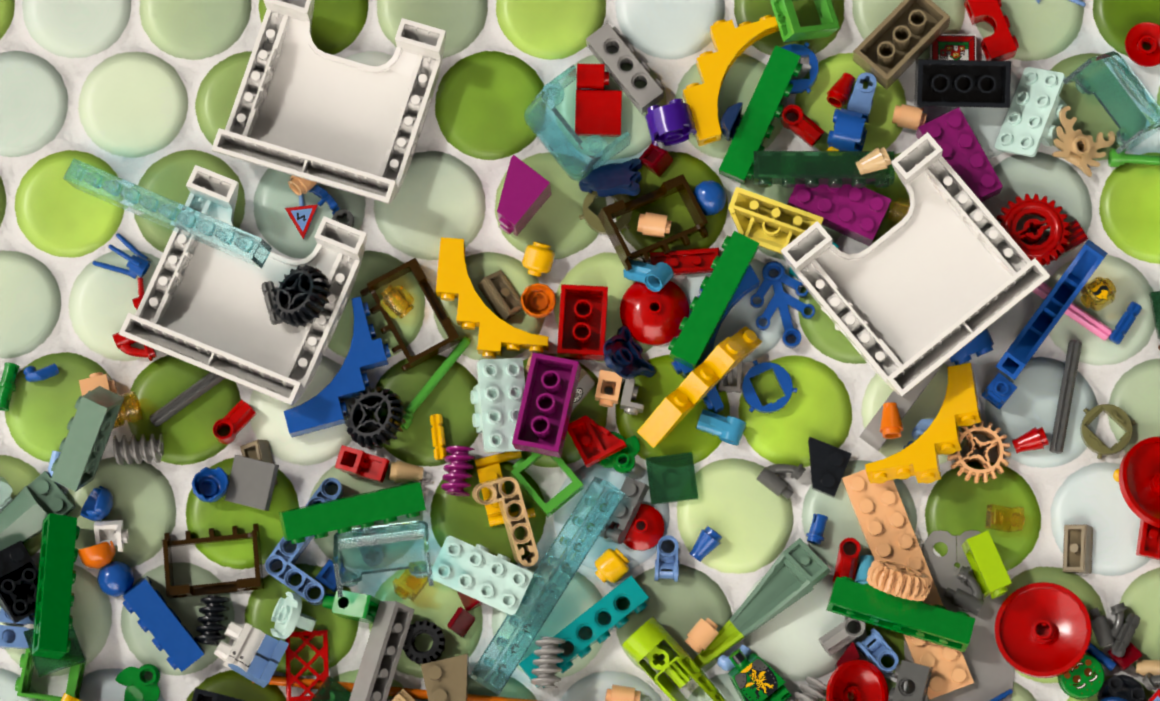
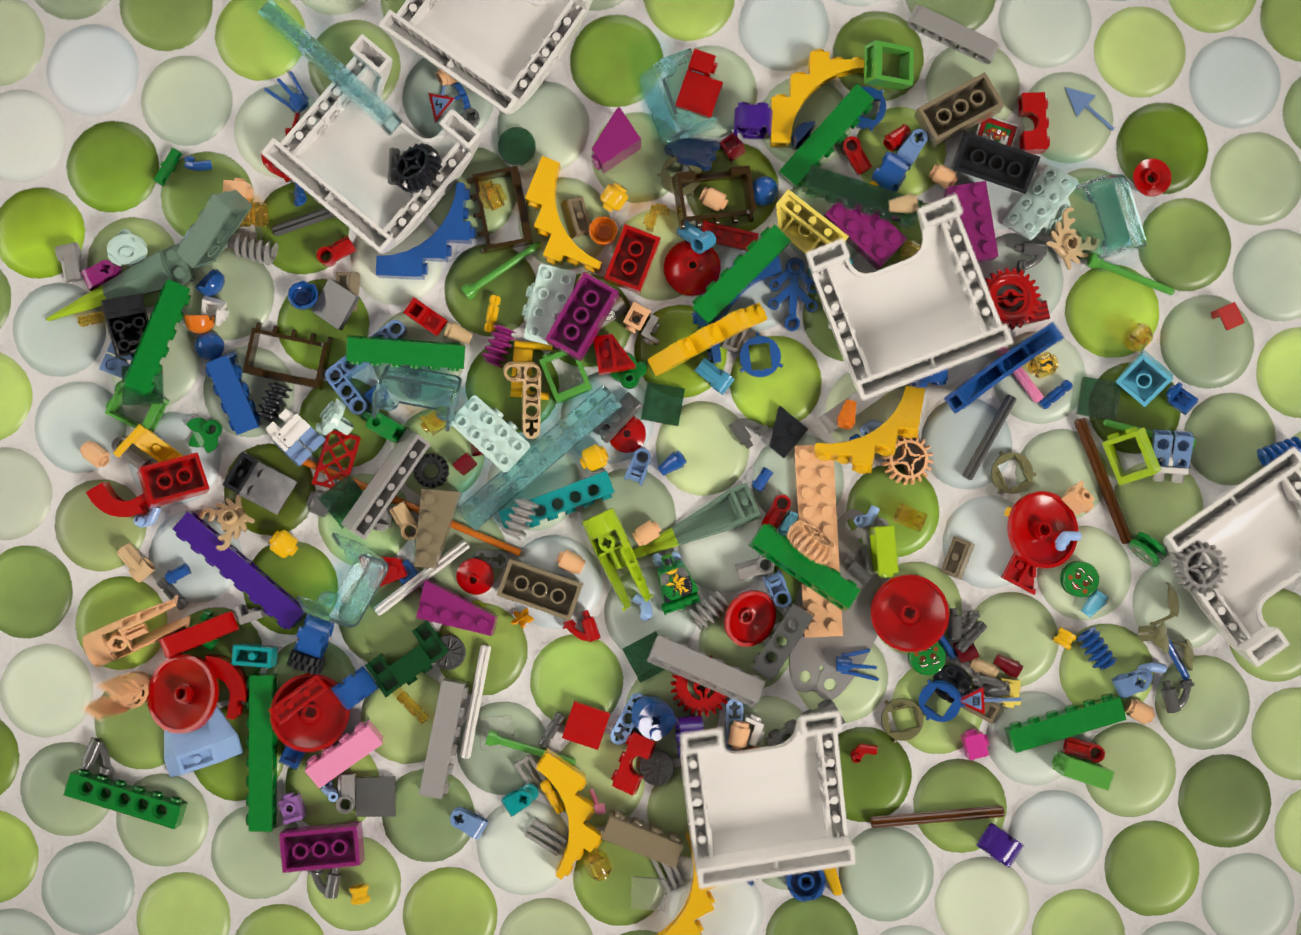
camera: 10 degrees right, 10 degrees up
(171, 371) = (300, 197): none -> blue piece
(387, 410) = (446, 284): black gear -> none
(406, 236) = (517, 146): none -> clear green tile
(588, 269) = (650, 218): none -> clear yellow bracket
(624, 356) = (656, 297): dark blue tile -> none
(641, 98) = (726, 34): light grey brick -> none
(850, 654) = (754, 584): dark red slope -> none
(955, 537) = (867, 519): none -> light blue arm
(999, 391) = (939, 417): blue window -> none
(1031, 440) = (950, 463): red cone -> none
(1040, 166) = (1037, 249): none -> dark grey plant

